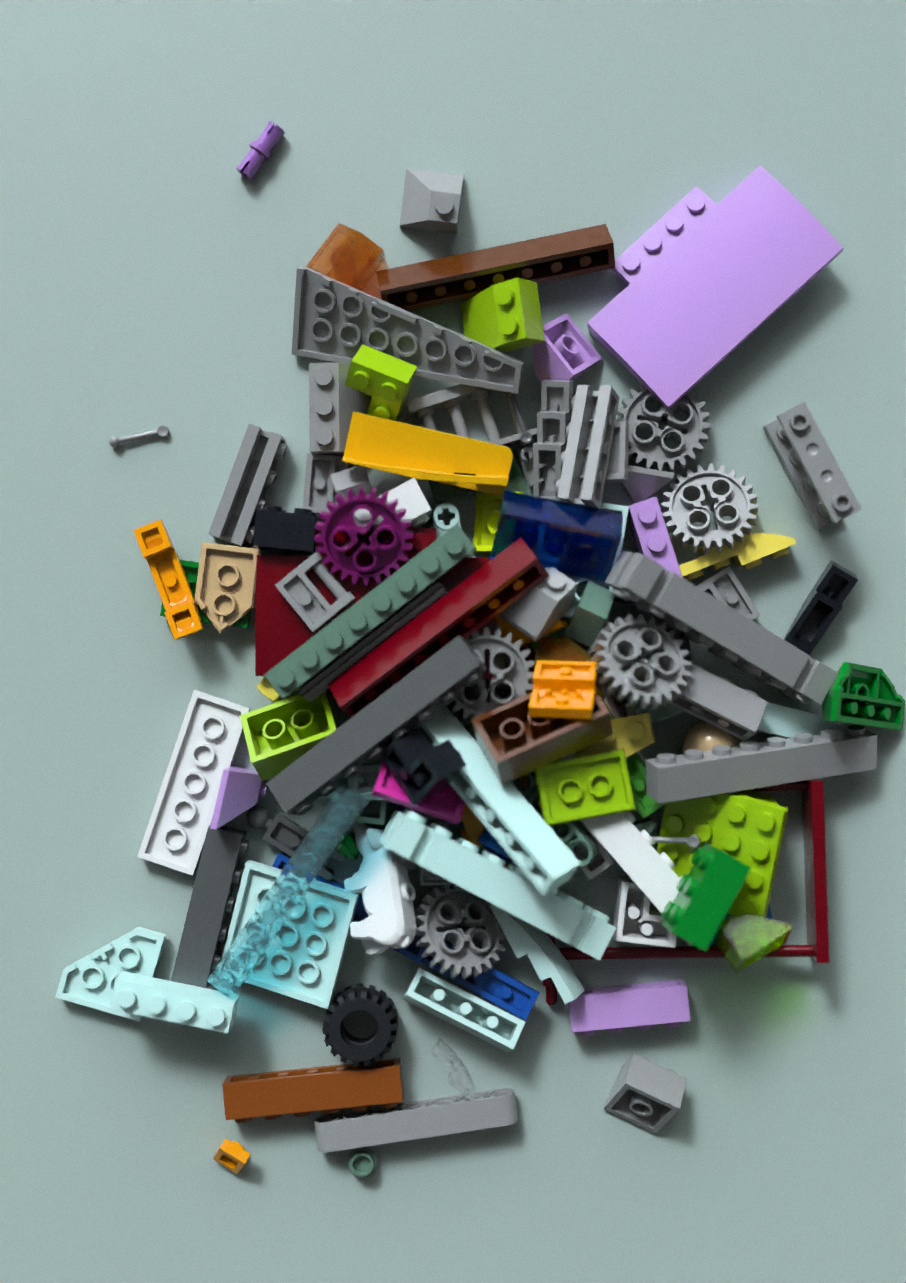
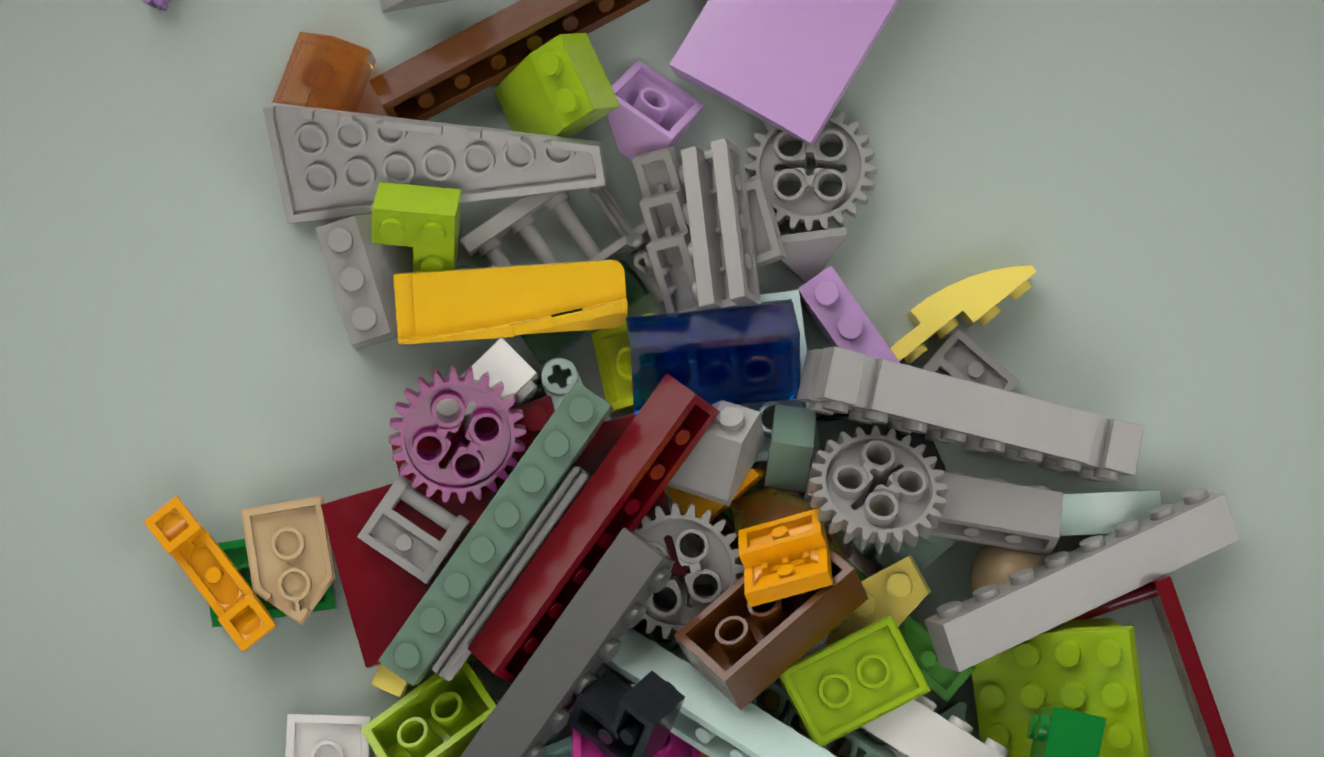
camera: 15 degrees left, 5 degrees down
(162, 431) = (143, 377): light grey hinge -> none
(248, 485) = (280, 417): light grey brick -> none
(285, 531) = (351, 460): black brick -> none
(318, 481) = (380, 377): light grey plate -> none
(351, 478) = (417, 363): light grey panel -> none
(692, 841) = (1022, 711): light grey hinge -> none
(736, 503) = (873, 277): light grey gear -> none
(811, 466) = (1023, 164): light grey fence -> none
(820, 607) = (1097, 346): black slope -> none
(863, 698) = (1192, 450): green wedge -> none

